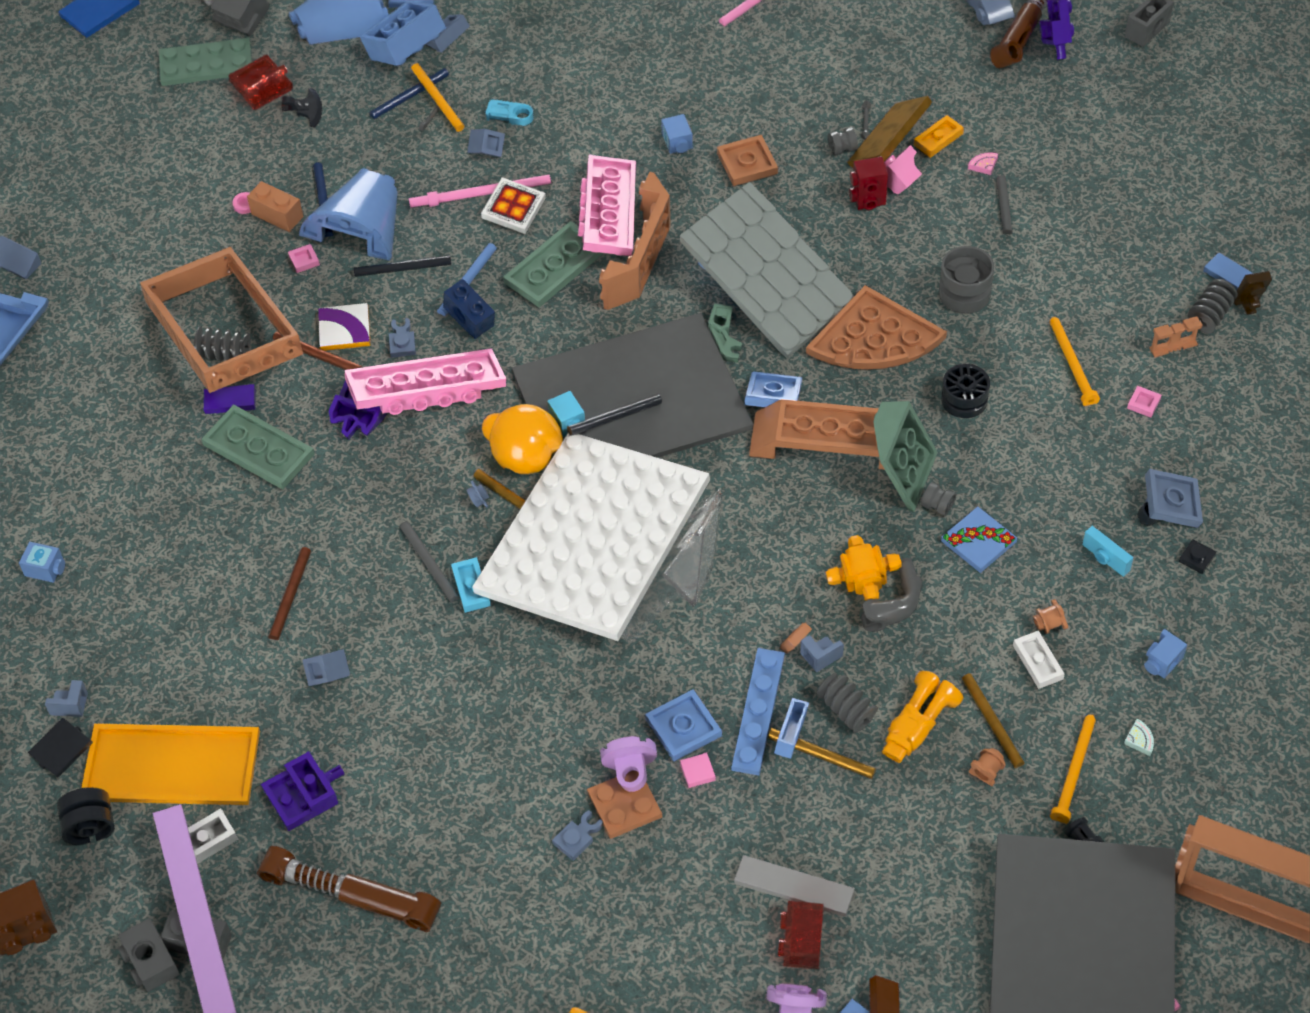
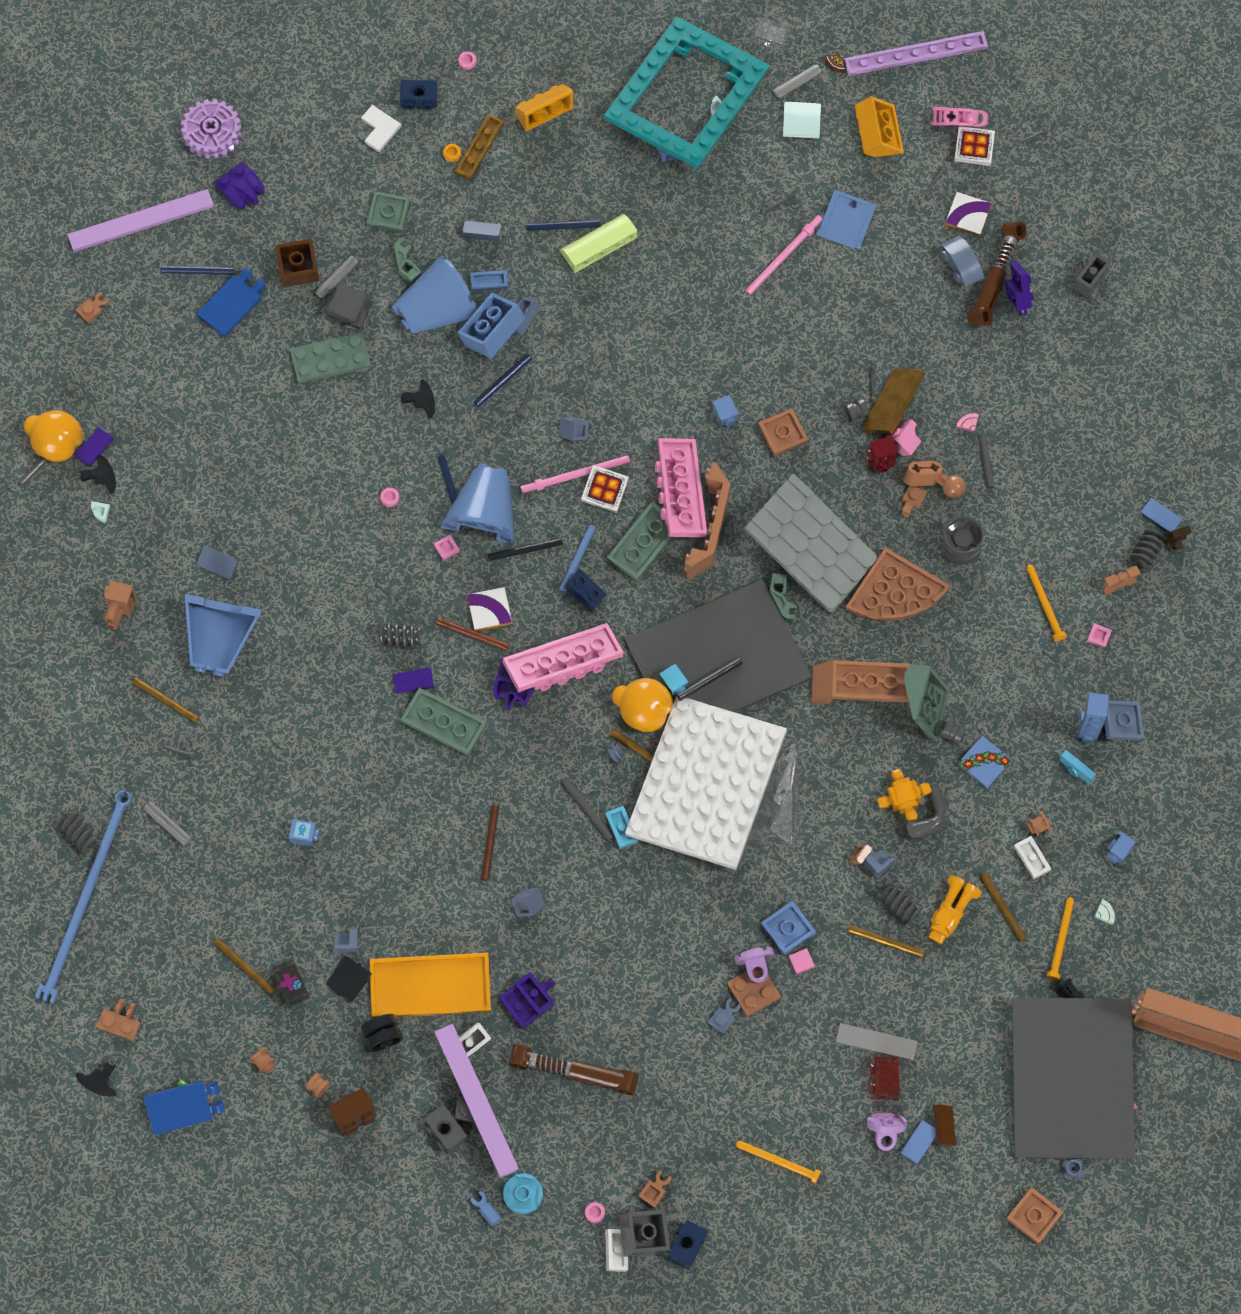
camera: 10 degrees left, 15 degrees up
(204, 272) = (368, 570): nougat door -> none
(261, 81) = (381, 378): clear red plate -> none
(275, 206) = (416, 502): nougat brick -> none
(402, 341) = (536, 620): sand blue plate -> none
(437, 97) = (526, 383): light orange bar -> none
(508, 112) = (586, 394): medium azure piece -> none
(758, 711) = (839, 912): medium blue plate -> none
(769, 388) = (824, 646): medium blue tile -> none
(791, 728) = (864, 926): medium blue piece -> none
(905, 238) = (913, 498): none -> nougat plate
(930, 210) = (929, 473): none -> nougat beam
(938, 136) = (931, 399): light orange plate -> none
(965, 390) = (965, 630): black wheel -> none
(988, 765) = (1002, 943): nougat brick -> none
(1131, 479) = (1093, 718): none -> medium blue arch
(1197, 556) = (1141, 765): black plate -> none

